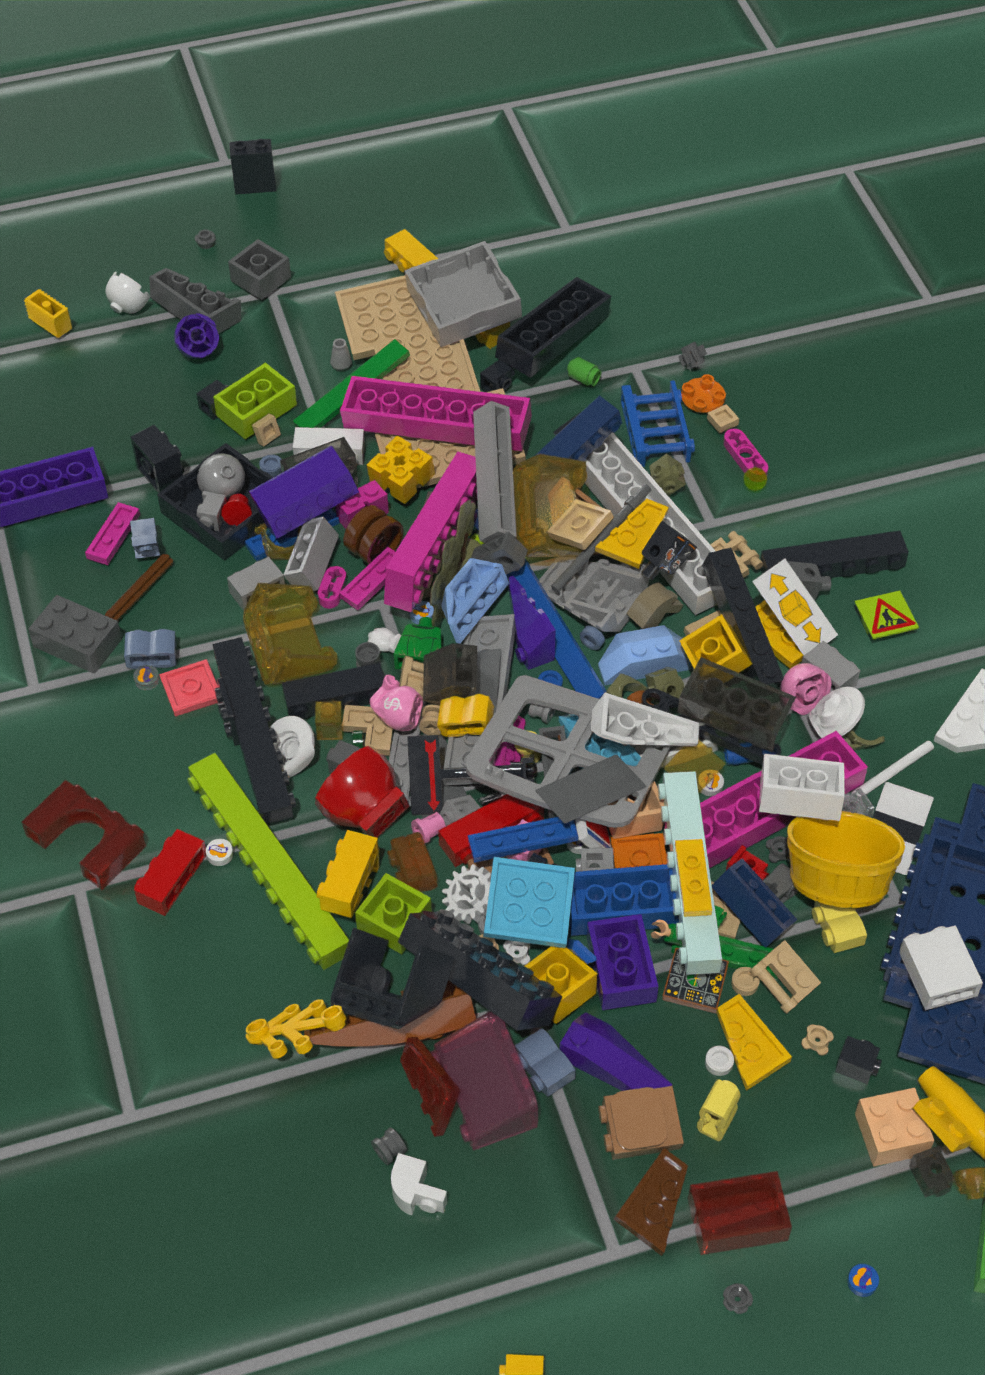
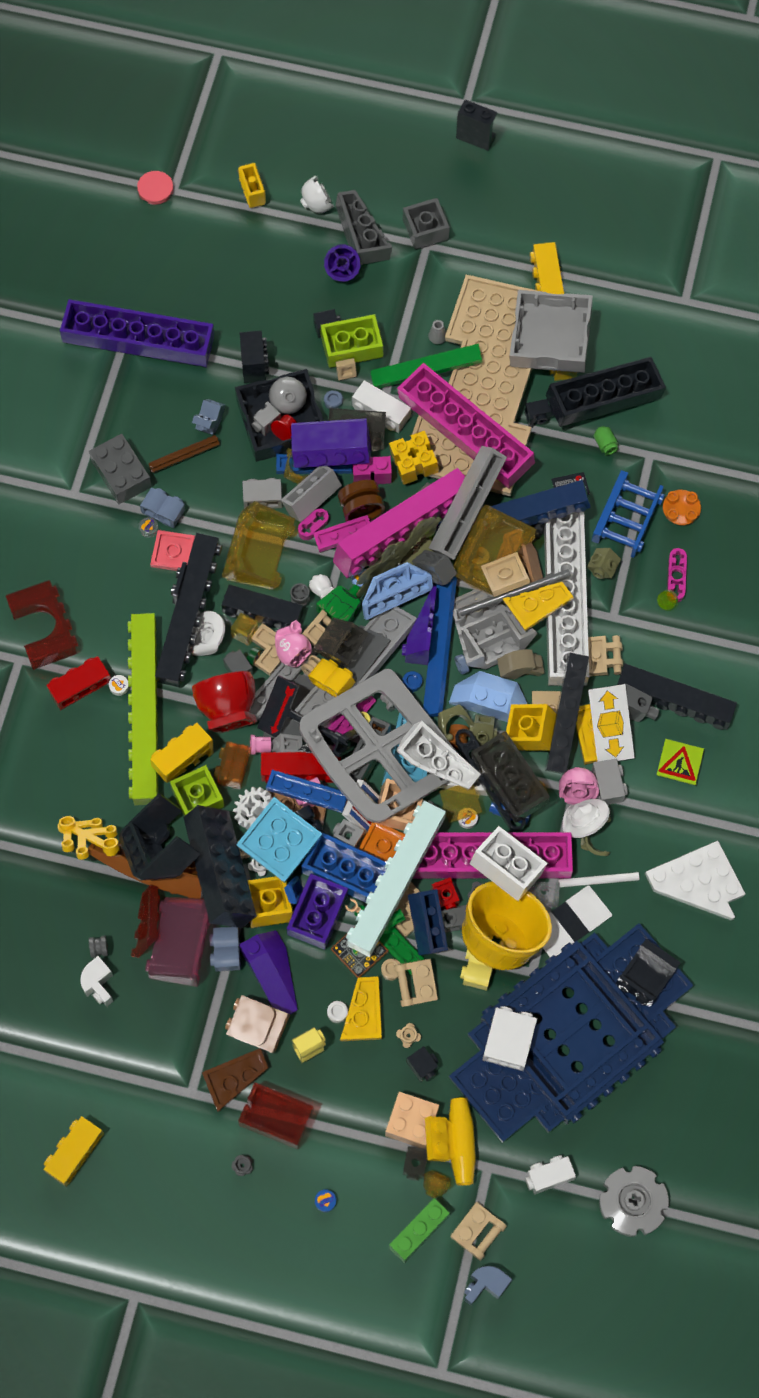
camera: 30 degrees right, 15 degrees up
(112, 533) = (191, 399): dark pink plate -> none
(205, 239) = (406, 175): dark grey plate -> none
(590, 788) = (370, 783): dark grey sticker -> none
(666, 551) = (547, 631): black torso -> none
(692, 355) = (696, 469): dark grey gear -> none
(693, 877) = (389, 886): yellow plate -> none
(723, 418) = (681, 536): tan plate -> none

